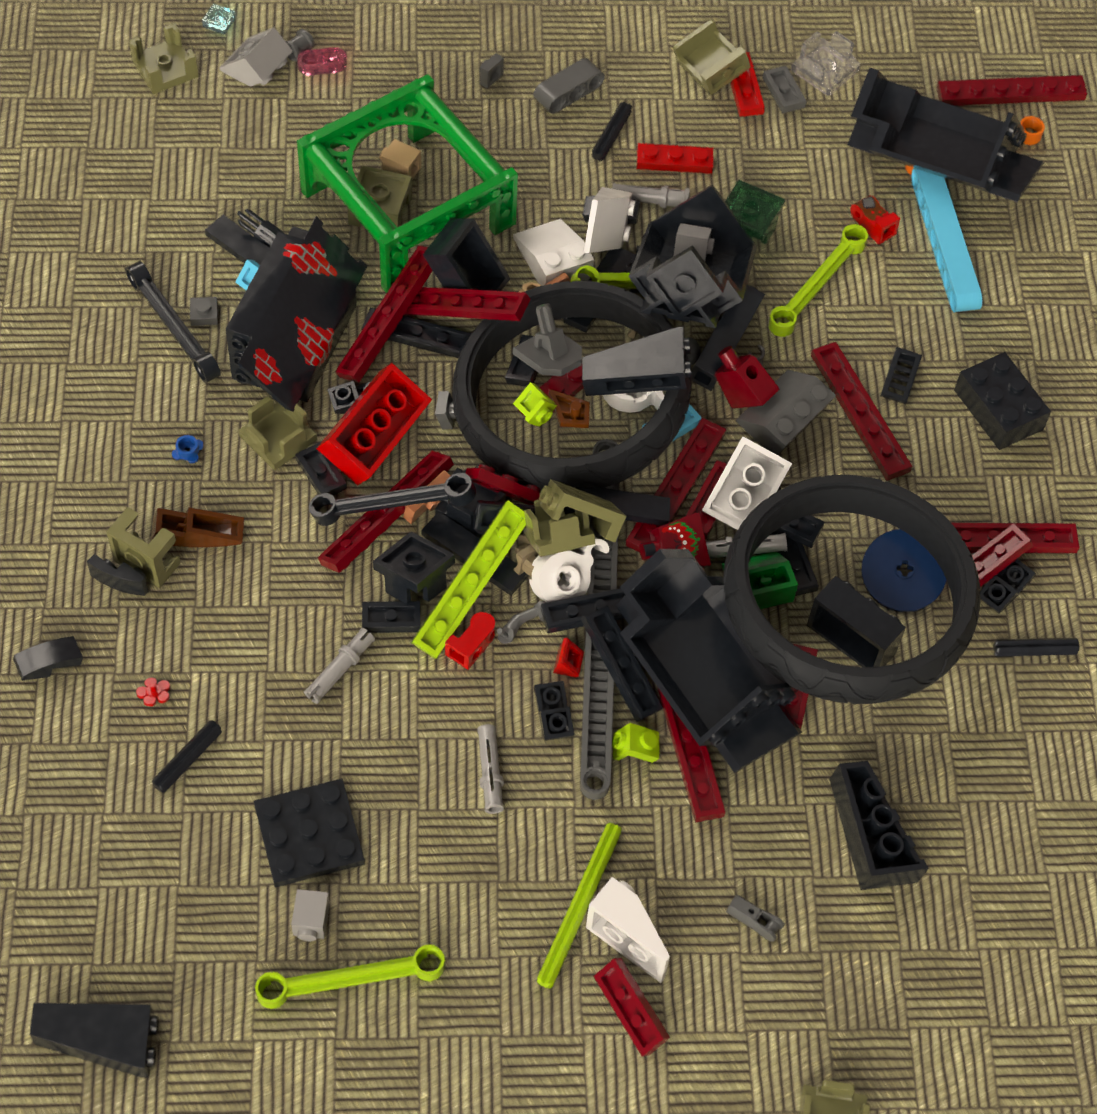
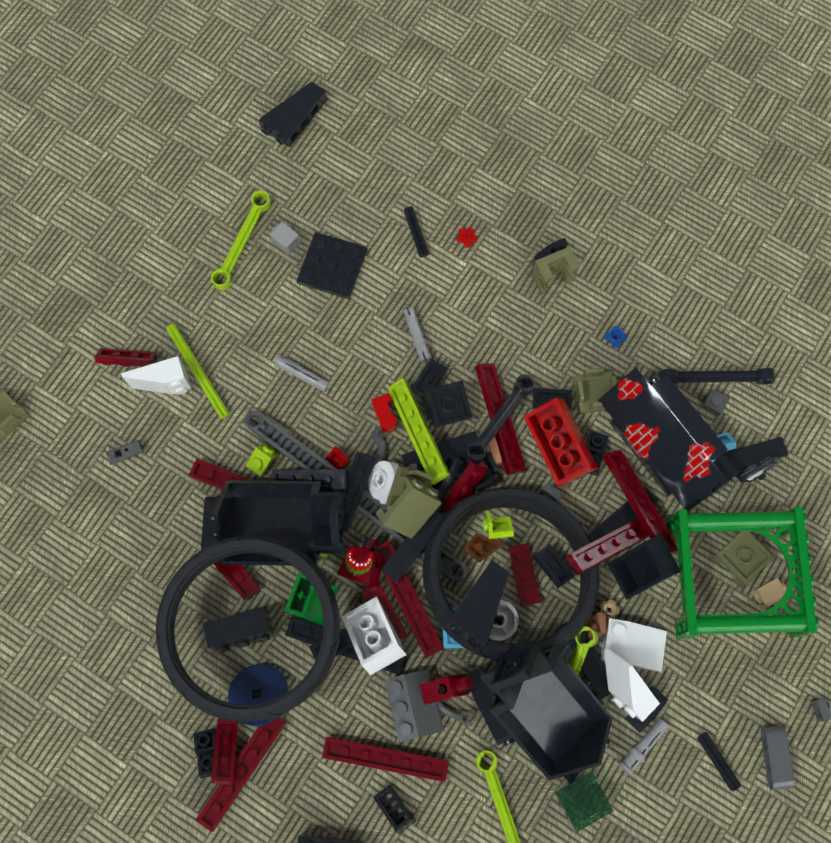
camera: 130 degrees right, 15 degrees up
(42, 658) = (519, 194): black slope -> none
(199, 527) = (555, 310): reddish brown slope -> none
(550, 349) = (533, 564): dark grey piece -> none
(553, 710) = (313, 430): black slope -> none
(674, 158) = (669, 790): red plate -> none
(694, 235) = (573, 731): light grey brick -> none
(772, 543) = (344, 598): light grey pin -> none
(872, 829) = (114, 544): black wedge -> none
(1036, 647) = (156, 738): black axle -> none

